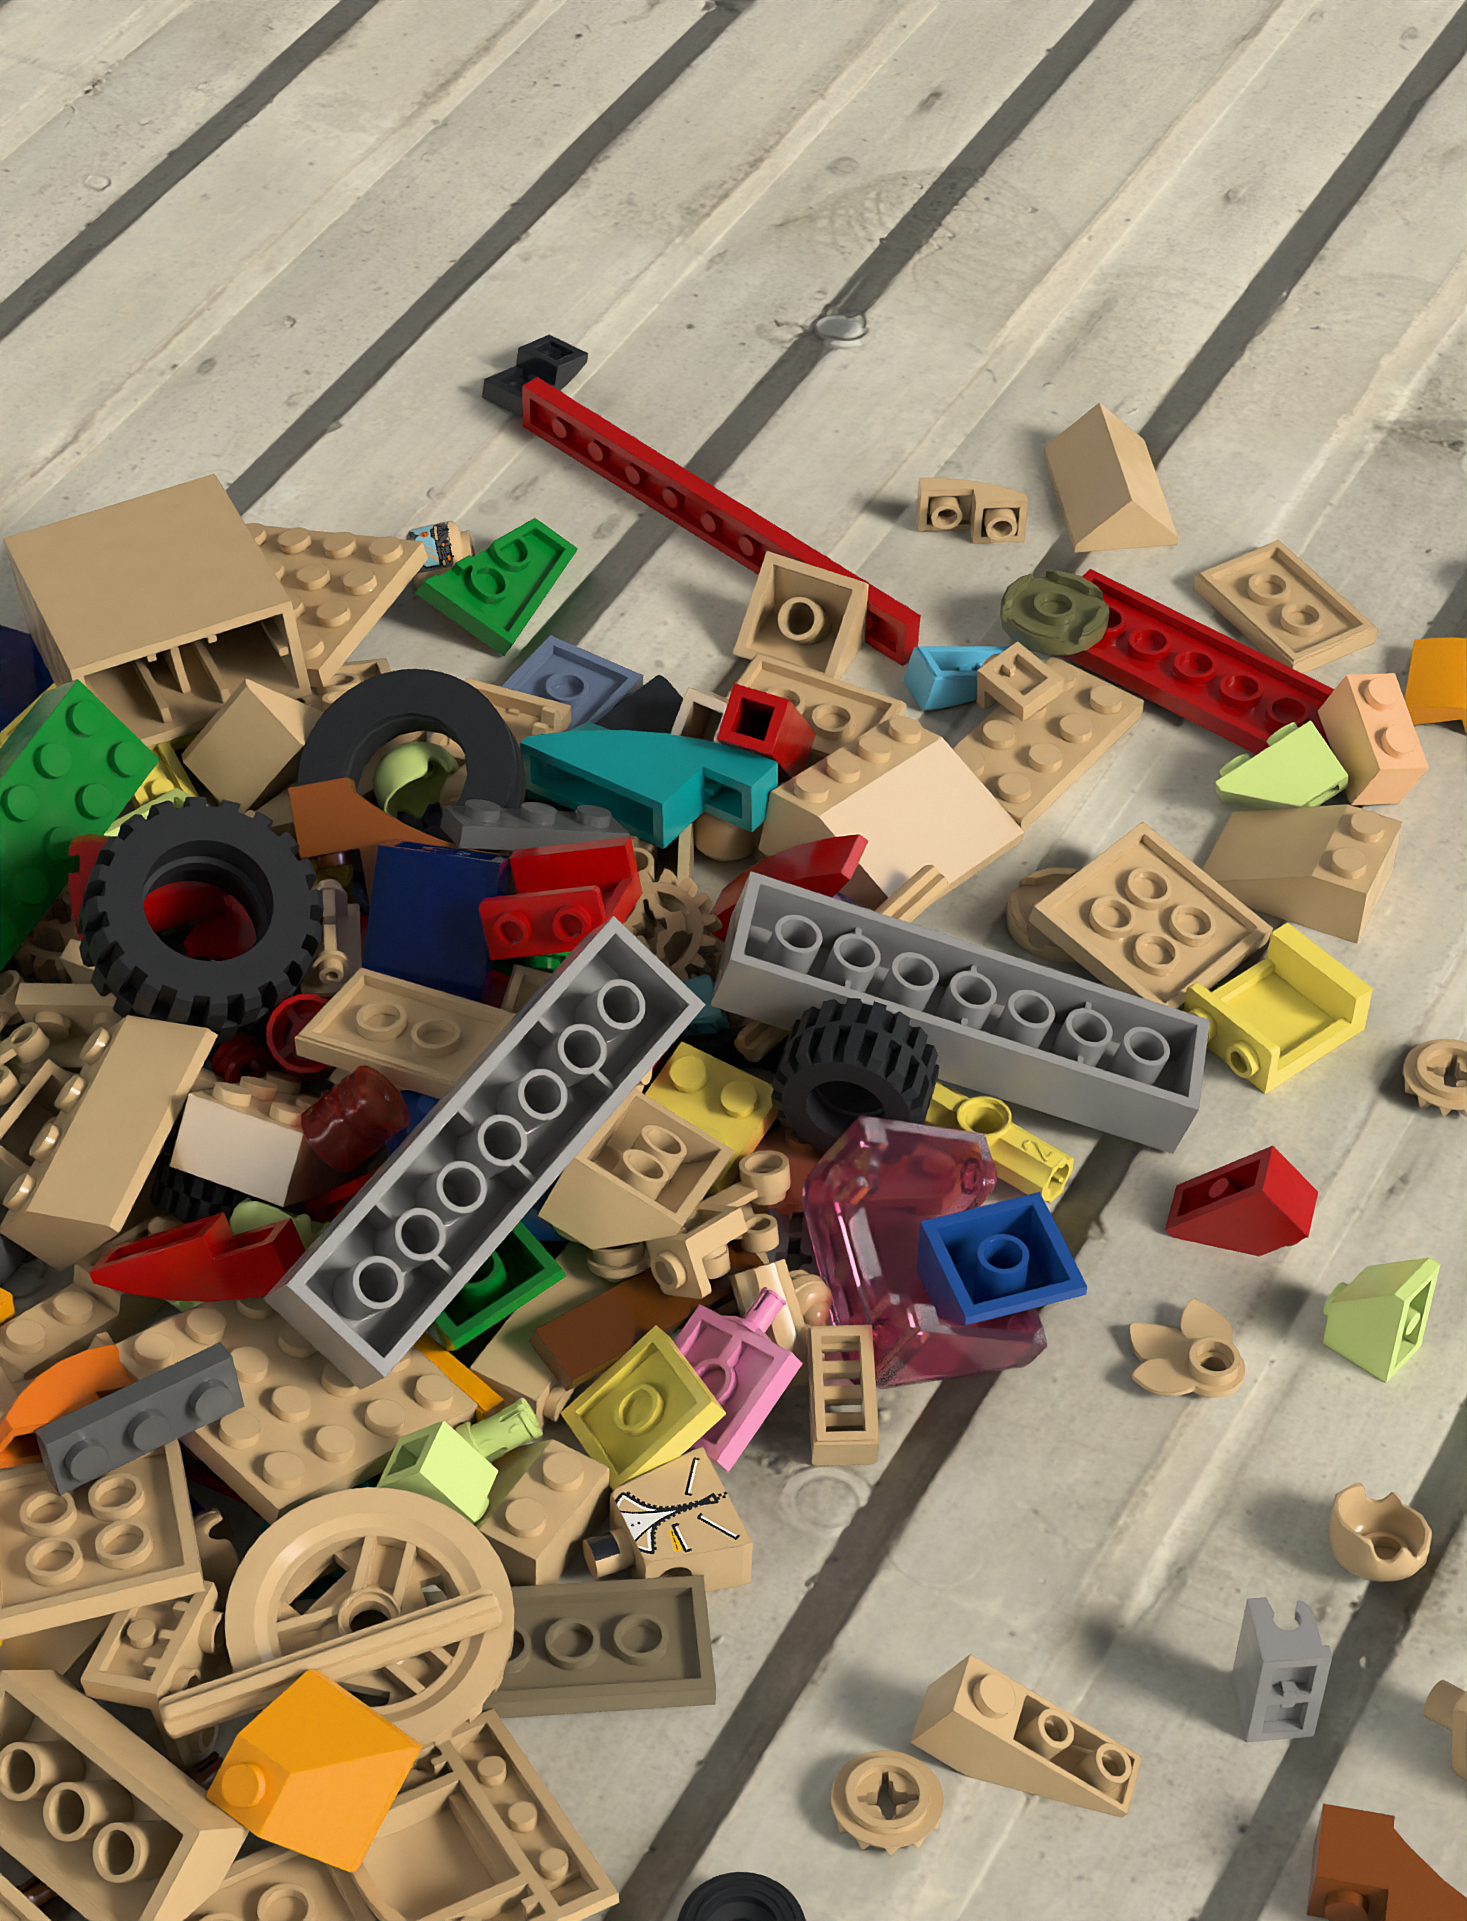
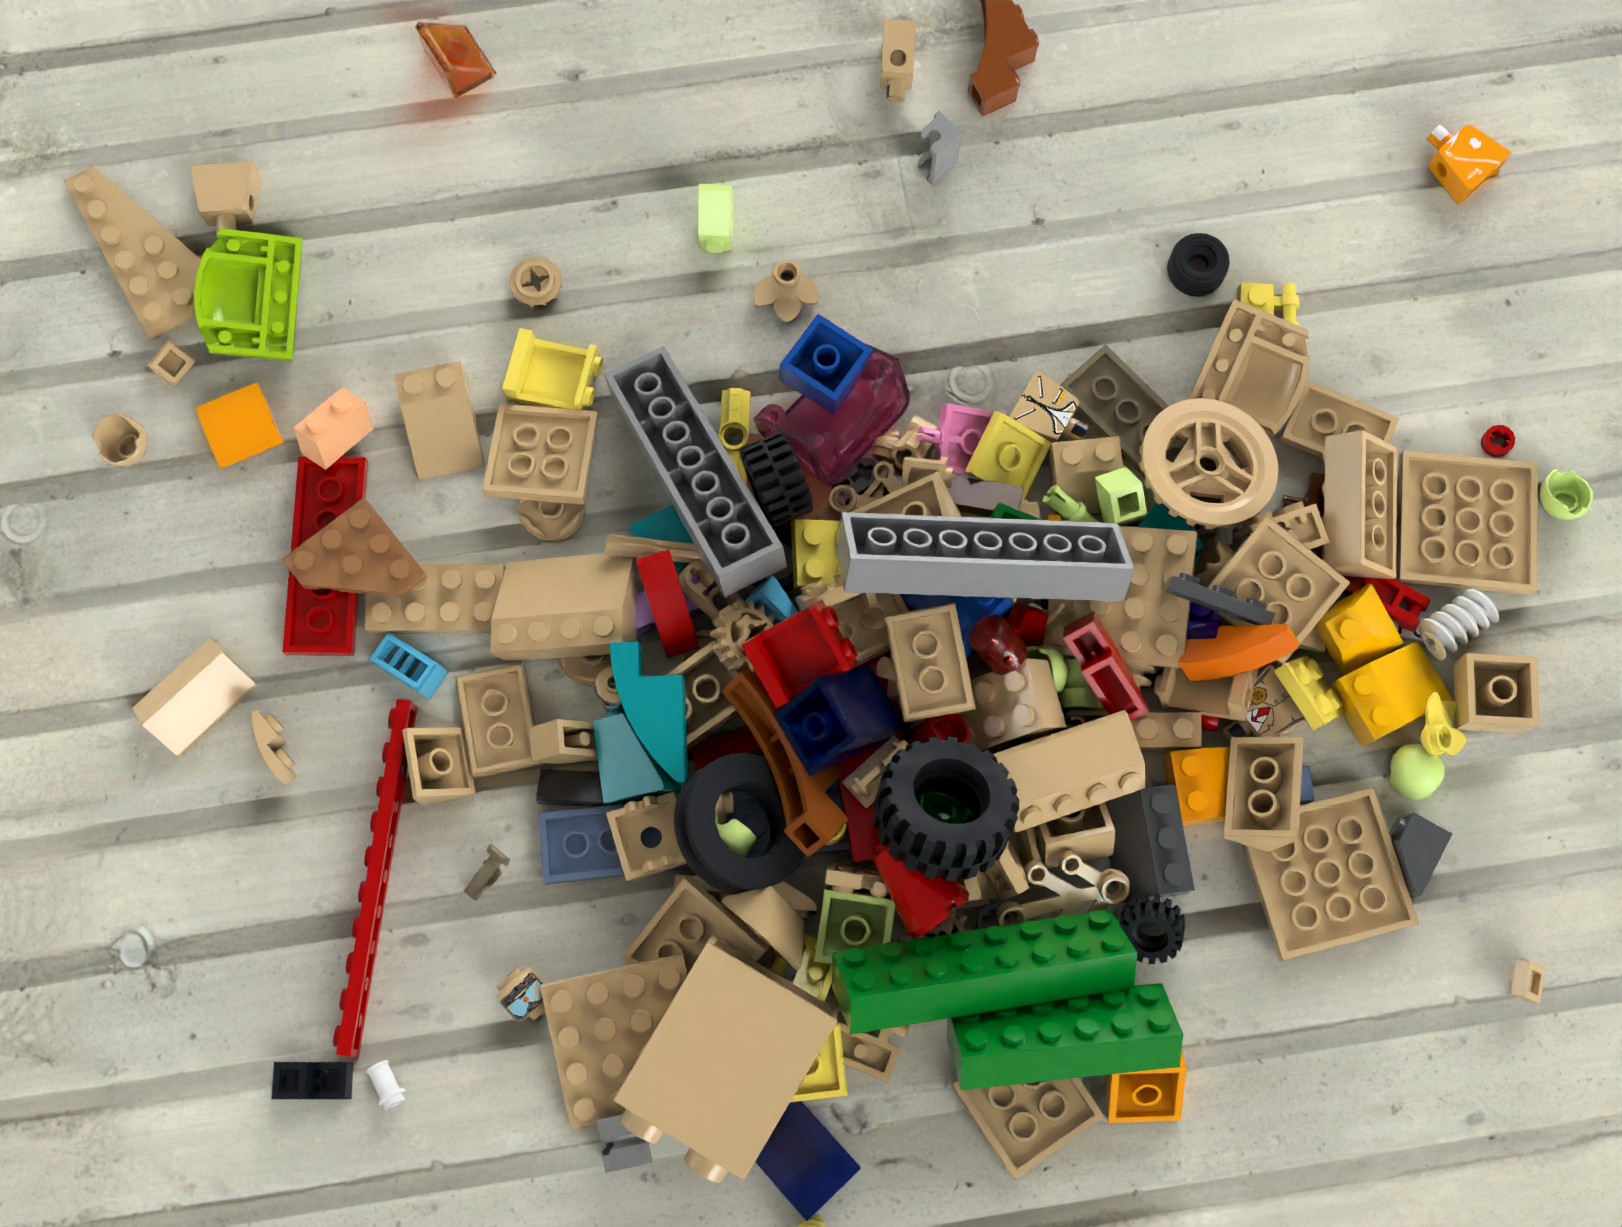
camera: 125 degrees left, 30 degrees up
(315, 1772) = (1291, 430): light orange slope -> none
(337, 1659) = (1245, 454): tan axle -> none
(463, 418) = (386, 1085): none -> white pin
(490, 827) = (740, 727): dark grey plate -> none
(502, 585) = (519, 940): green wing -> none
(618, 605) = (487, 873): none -> dark tan piece
(767, 728) = (571, 683): red brick -> none
(842, 1436) = (944, 379): tan slope -> none
(912, 1789) = (1095, 246): tan gear -> none
(1017, 682) = (414, 618): tan bracket -> none
(1022, 1741) = (1034, 228): tan slope -> none
(1054, 613) = (338, 641): olive tile -> none
(1158, 680) = (355, 556): none -> medium nougat plate
(1245, 1205) = (691, 313): red slope -> none
(1285, 608) = (233, 549): tan tile -> none
(1288, 774) = (388, 456): yellowish green slope -> none
(1377, 1537) = (831, 160): tan hair -> none

